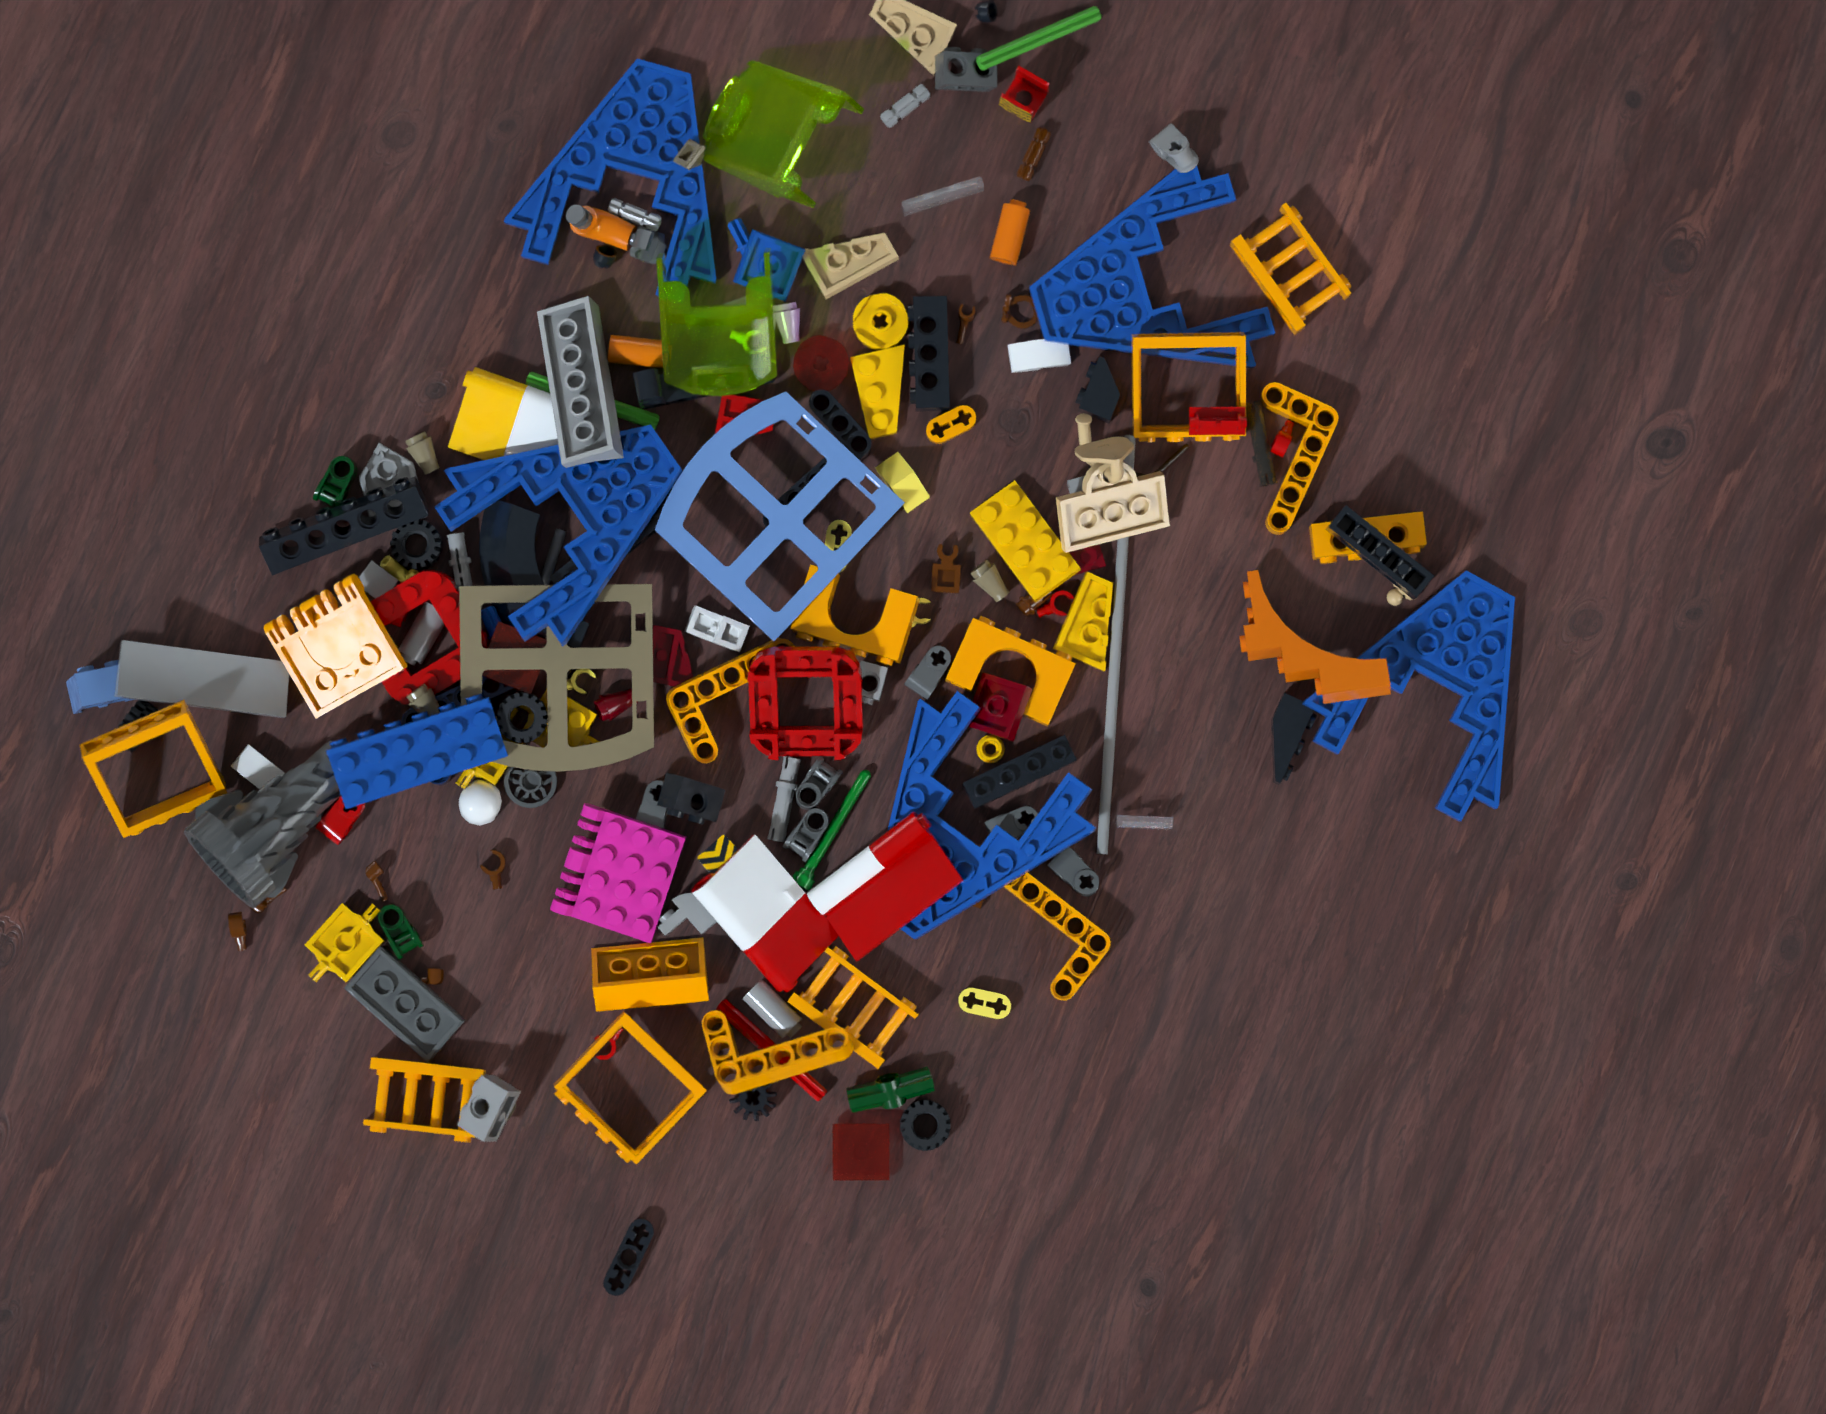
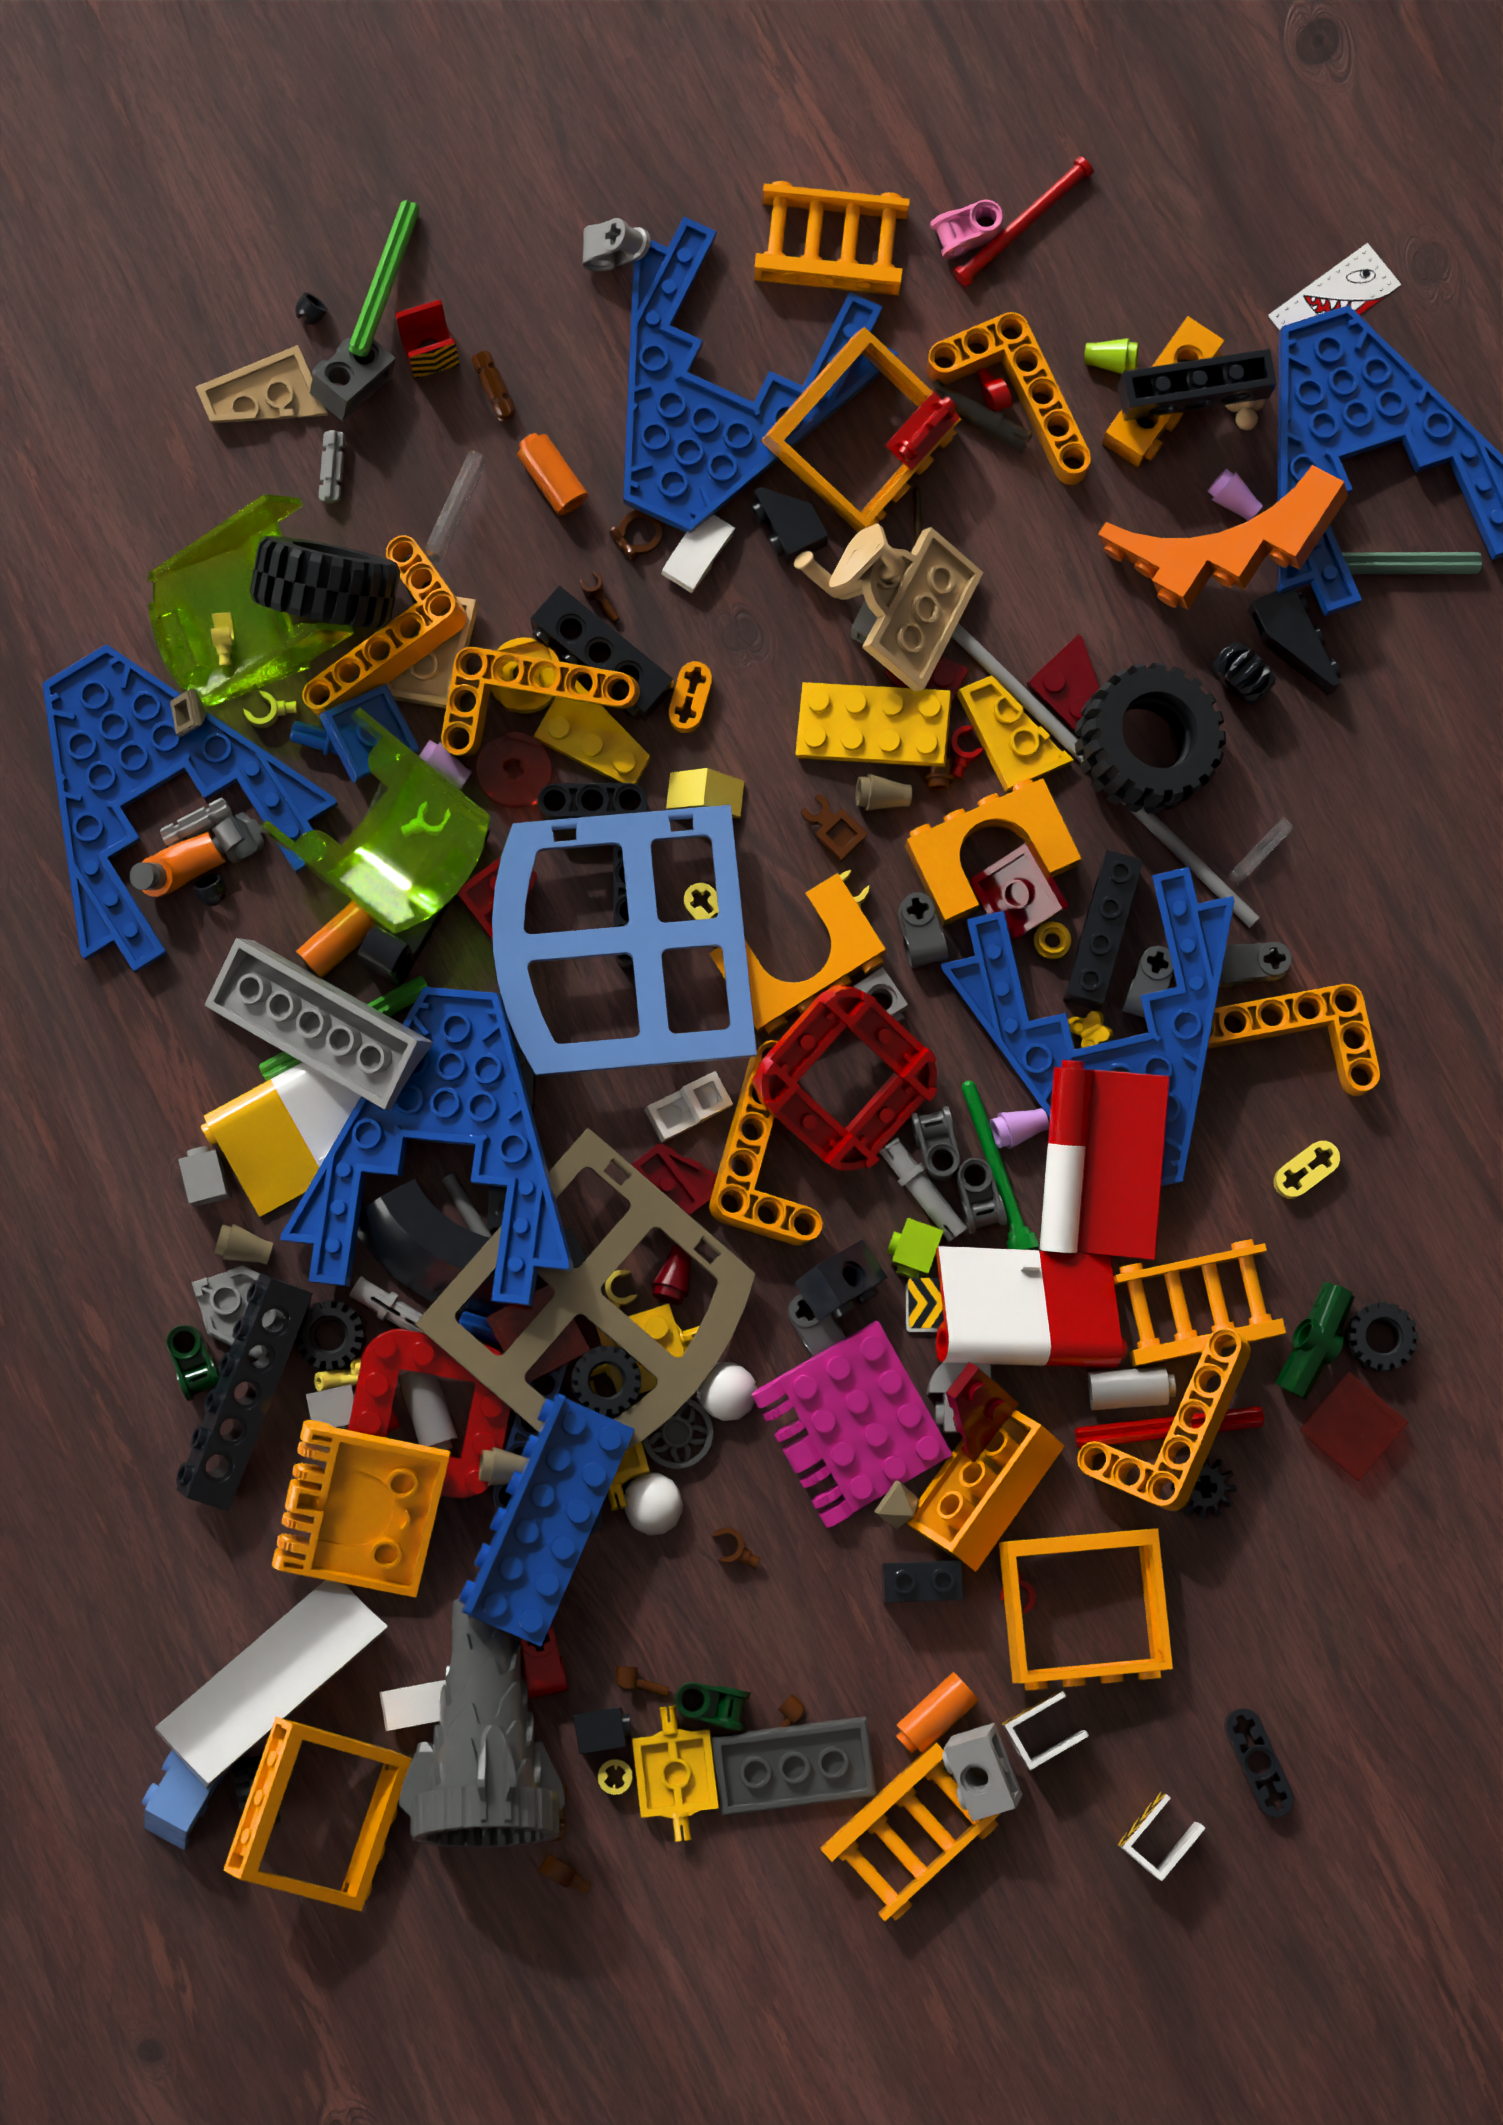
camera: 50 degrees left, 5 degrees down
(319, 919) = (603, 1775): none -> light yellow bush
(333, 882) = (602, 1729): none -> black brick
(442, 397) = (204, 1176): none -> light grey brick
(500, 1057) = (936, 1714): none -> orange brick
(518, 1237) = (1176, 1852): none -> white piece
(521, 1116) = (1050, 1752): none -> white piece
(565, 986) = (922, 1581): none -> black brick
(577, 788) = (727, 1391): none -> white hair
(595, 937) = (897, 1505): none -> dark tan slope
(685, 935) = (978, 1409): none -> dark red wing
(740, 200) = (278, 708): none -> light yellow piece
(745, 823) = (914, 1248): none -> lime brick
(752, 134) = (223, 636): none -> light yellow piece
(827, 166) = (324, 582): none -> black tyre
(837, 230) = (395, 636): none -> light orange beam
(866, 821) = (1016, 1127): none -> lavender cone
(874, 328) = (526, 681): none -> light orange beam
(957, 814) = (1091, 1028): none -> yellow piece
(1147, 633) = (1066, 682): none -> dark red wing
(1187, 711) = (1181, 706): none -> black tyre
(1239, 724) = (1244, 673): none -> black gear
(1342, 627) = (1234, 495): none -> lavender cone
(1364, 339) = (962, 233): none -> bright pink piece
(1365, 489) = (1113, 355): none -> lime cone
(1392, 762) = (1413, 562): none -> sand green axle
(1400, 368) = (1081, 169): none -> red bar
(1532, 588) = (1355, 282): none -> white sticker

